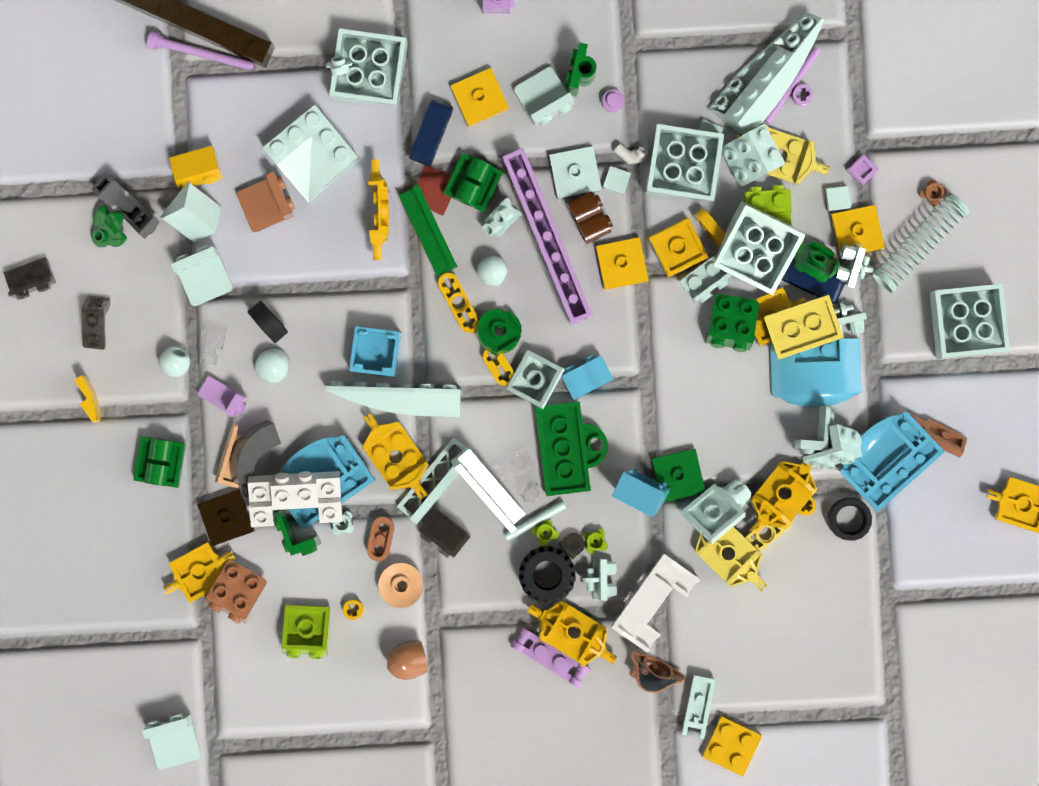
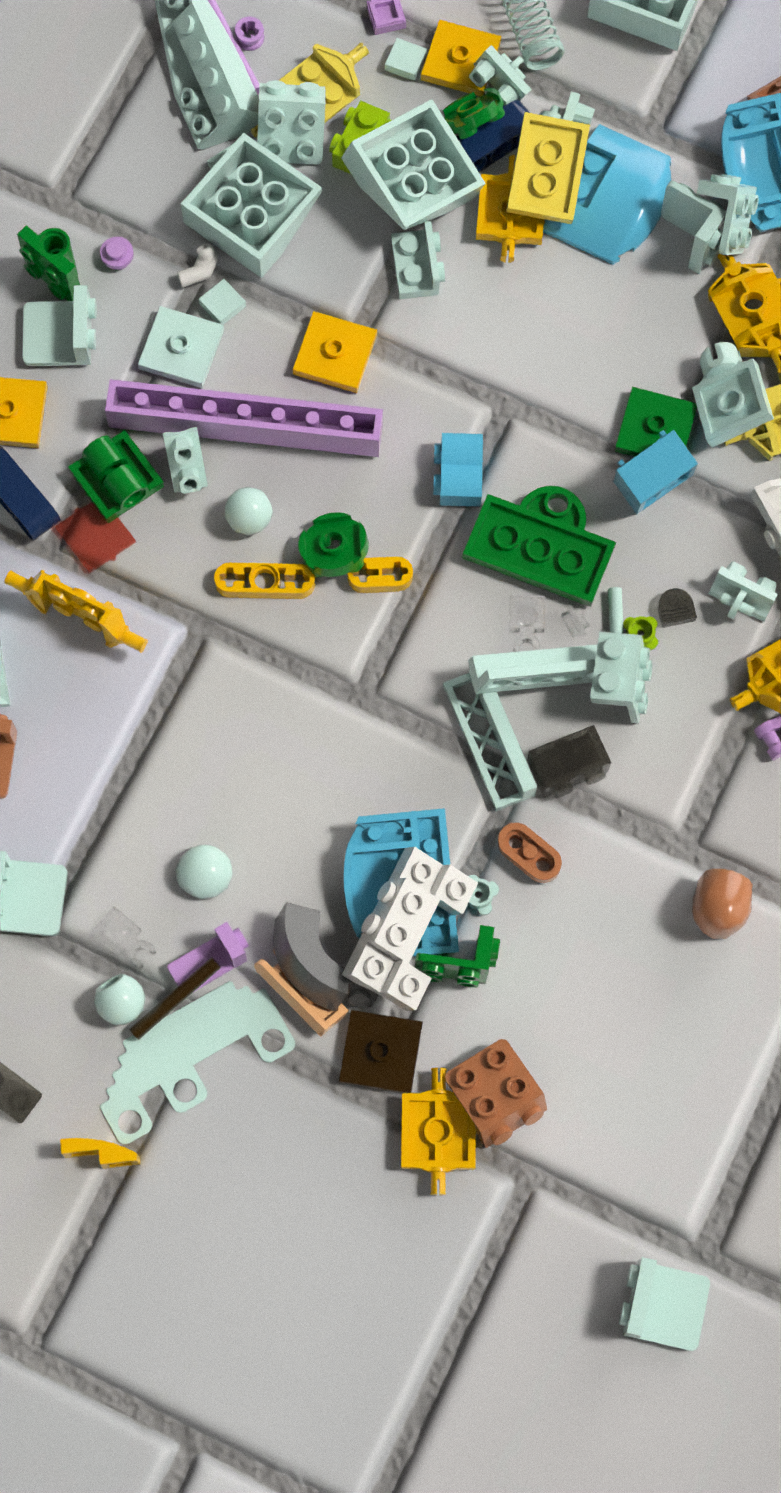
camera: 65 degrees left, 15 degrees down
(159, 462) = (247, 1100): green plate -> none
(171, 404) = (182, 1041): none -> light aqua piece
(195, 392) = (176, 997): none -> dark brown bar
(267, 321) = (140, 837): black tyre -> none
(306, 631) = (606, 1024): lime plate -> none
(346, 607) = (616, 938): yellow bush -> none
(375, 351) = (267, 719): medium azure container -> none
(380, 445) = (398, 761): yellow plate -> none
(392, 593) = (617, 843): light nougat dish -> none
(404, 399) = (354, 716): light aqua wedge -> none
(428, 231) = (144, 563): green fence -> none
(506, 537) = (621, 673): none -> light aqua bracket
(535, 379) = (427, 531): light aqua slope -> none
(554, 593) = (705, 629): black tyre -> none
(589, 217) = (250, 357): reddish brown brick -> none
(600, 545) = (691, 566): lime plate -> none
(678, 247) = (355, 272): yellow plate -> none
(710, 226) = (355, 220): yellow beam -> none
(732, 322) = (494, 254): green bracket -> none

